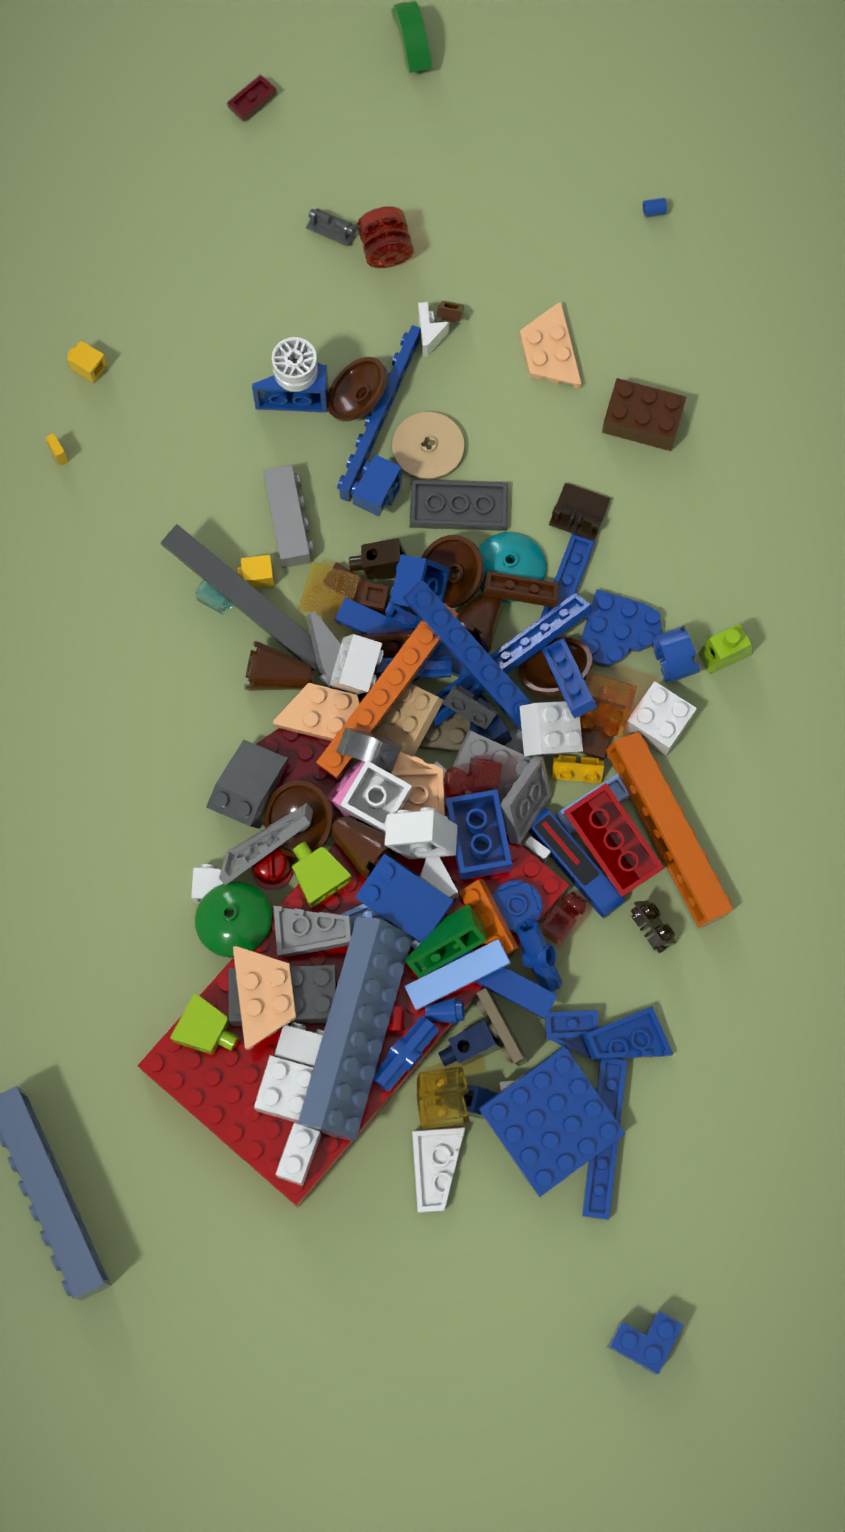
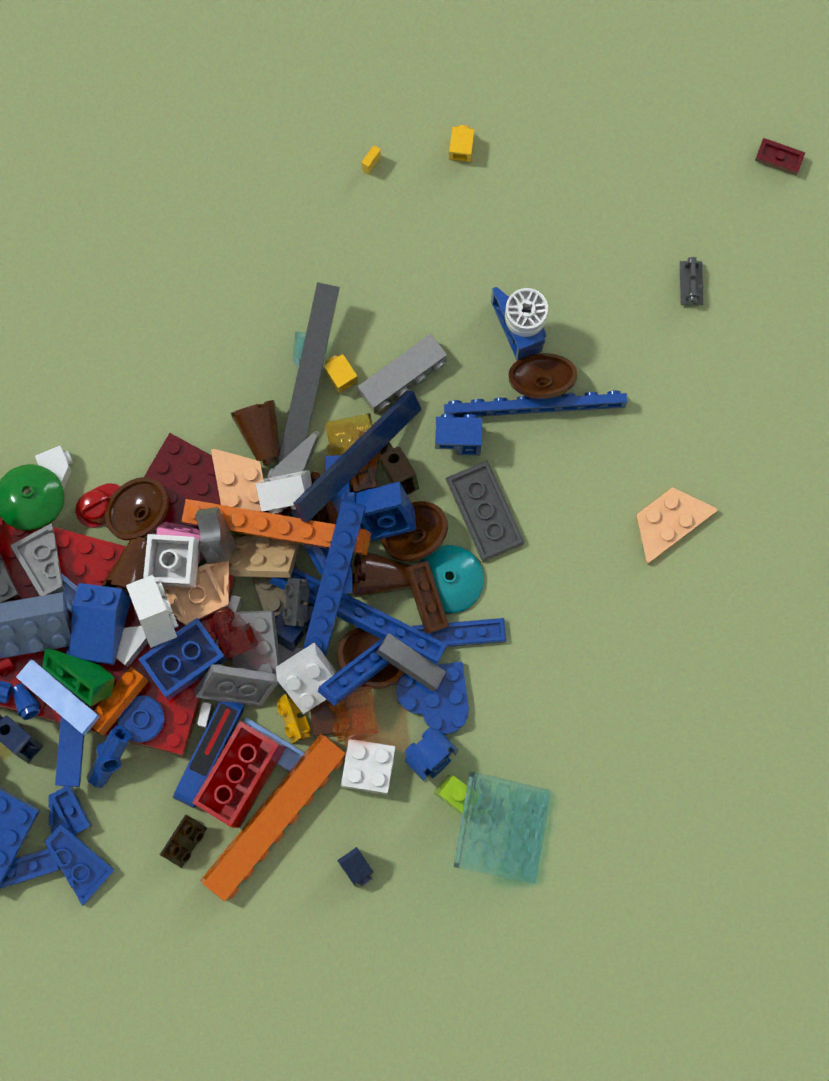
camera: 65 degrees right, 5 degrees up
(248, 784) = (149, 454): dark grey slope -> none
(261, 844) = (103, 490): light grey wing -> none
(318, 874) = (92, 545): lime torso -> none
(355, 584) = (357, 456): none -> dark blue tile
(385, 237) = (698, 331): clear red wheel -> none
(410, 447) = (528, 442): tan piece -> none
(431, 332) = (628, 412): white slope -> none
(450, 311) = (660, 419): reddish brown plate -> none
(501, 1028) = (35, 755): dark tan plate -> none
(562, 920) = (150, 763): clear red brick -> none
(579, 511) = (528, 615): dark brown hinge -> none
(579, 629) = (411, 662): none -> dark grey tile
(643, 414) = (644, 629): reddish brown brick -> none
(752, 772) = (356, 867): none -> dark blue slope
(778, 618) = (502, 828): none -> clear light blue plate

